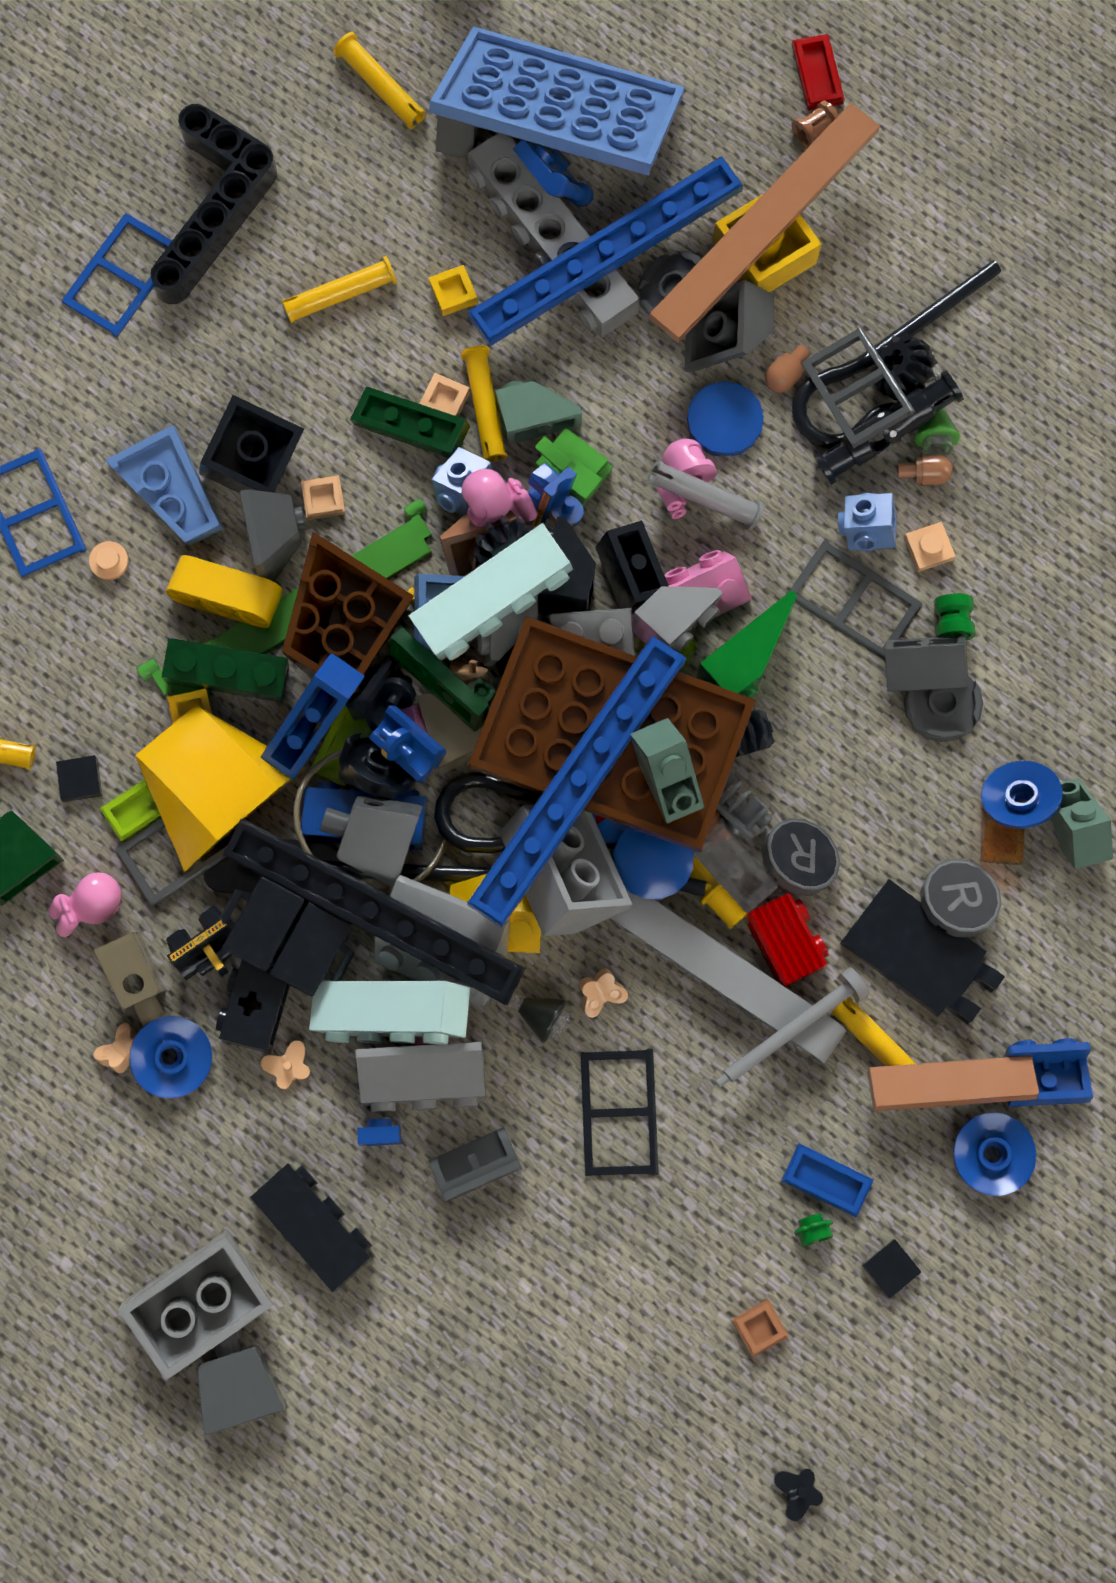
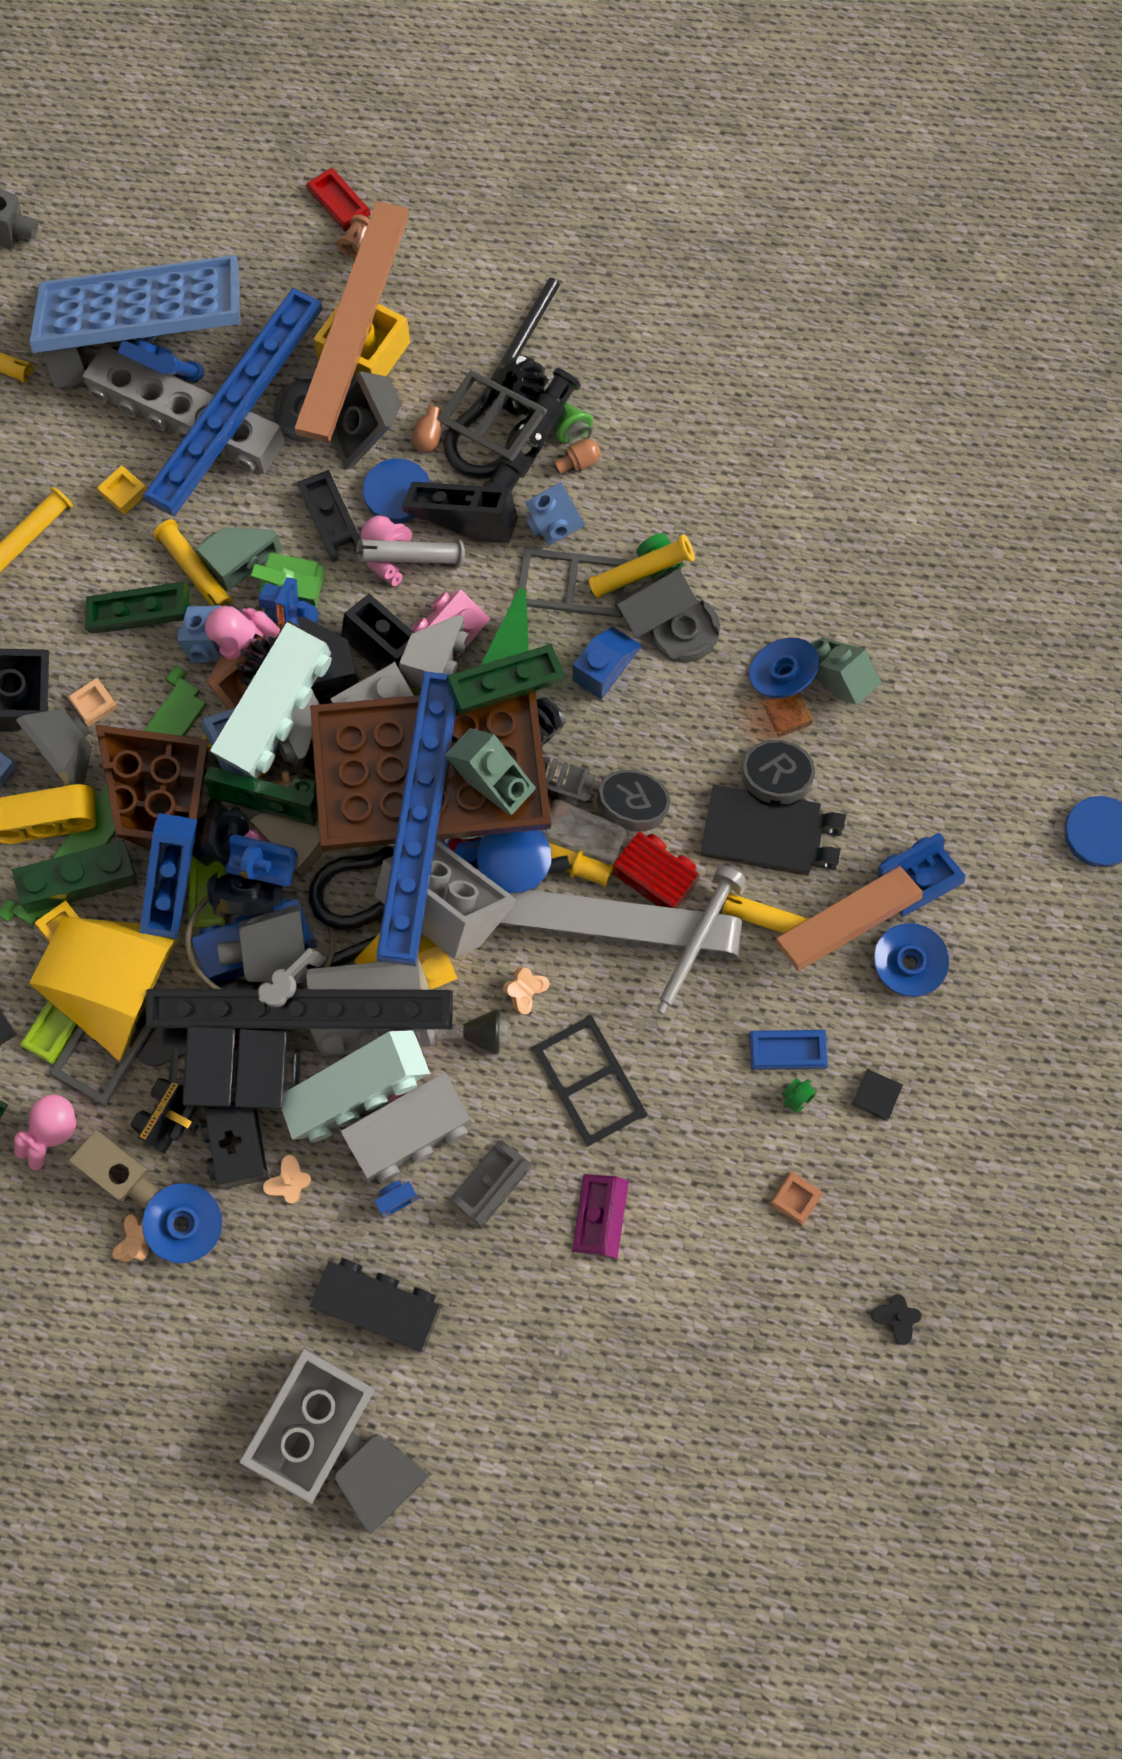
camera: 25 degrees left, 5 degrees down
(369, 880) = (283, 983): none -> light grey piece
(445, 395) = (156, 572): light nougat plate -> none
(564, 1248) = (600, 1215): none -> magenta slope
(645, 411) = (328, 512): none -> black hinge
(728, 682) = (505, 679): none -> dark green hinge
(782, 474) = (469, 510): none -> black slope
(845, 698) = (604, 661): none -> blue slope
(929, 546) = (611, 514): light nougat plate -> none
(930, 621) = (642, 567): none -> yellow pin

